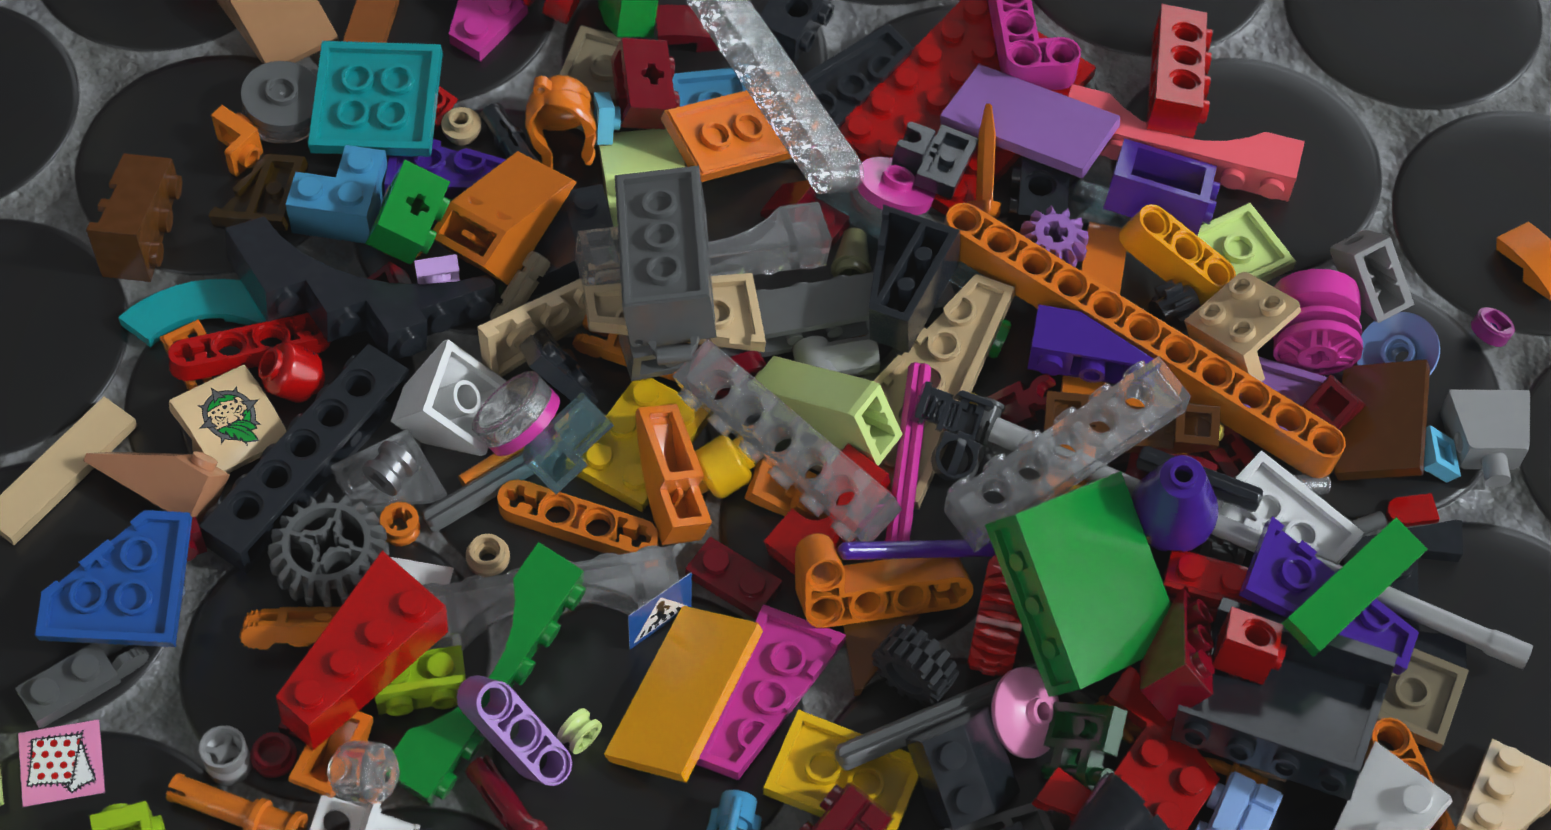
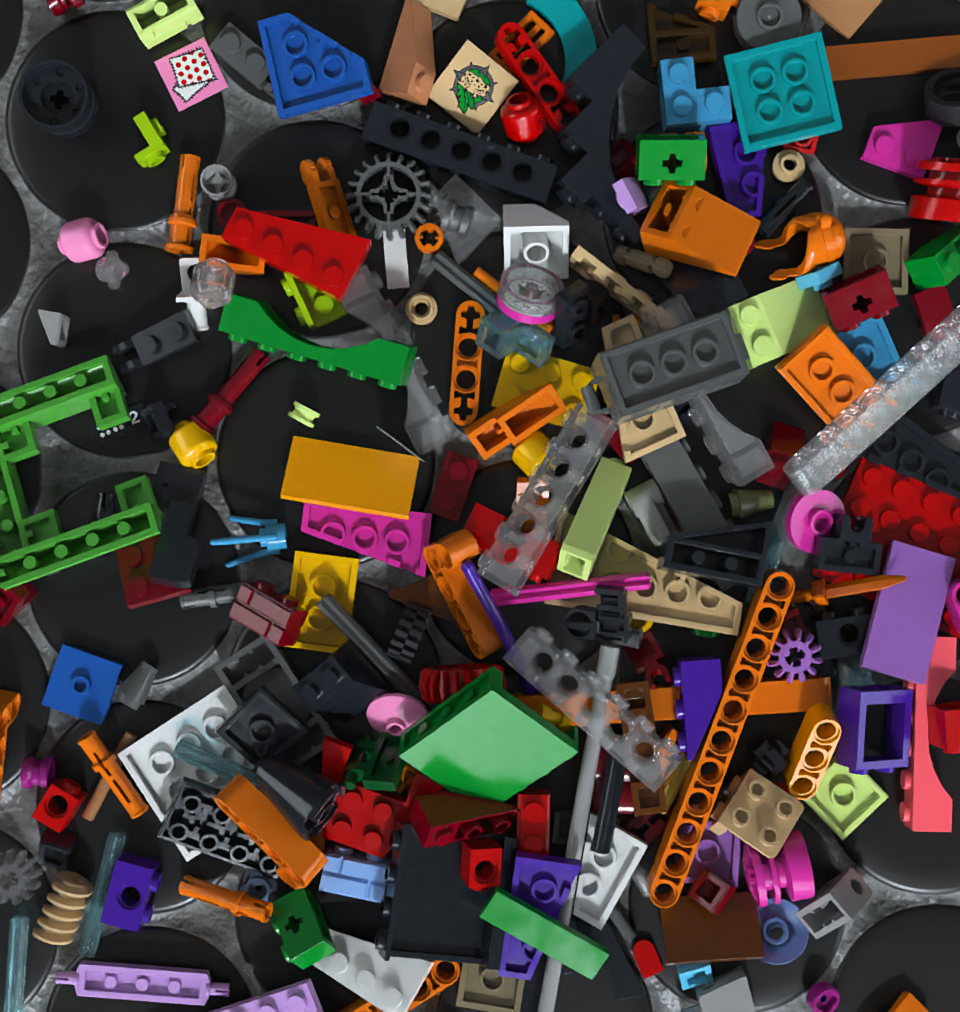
camera: 80 degrees right, 30 degrees up
(496, 723) = (276, 373): medium lavender beam -> none
(1176, 505) = (574, 792): dark purple cone -> none

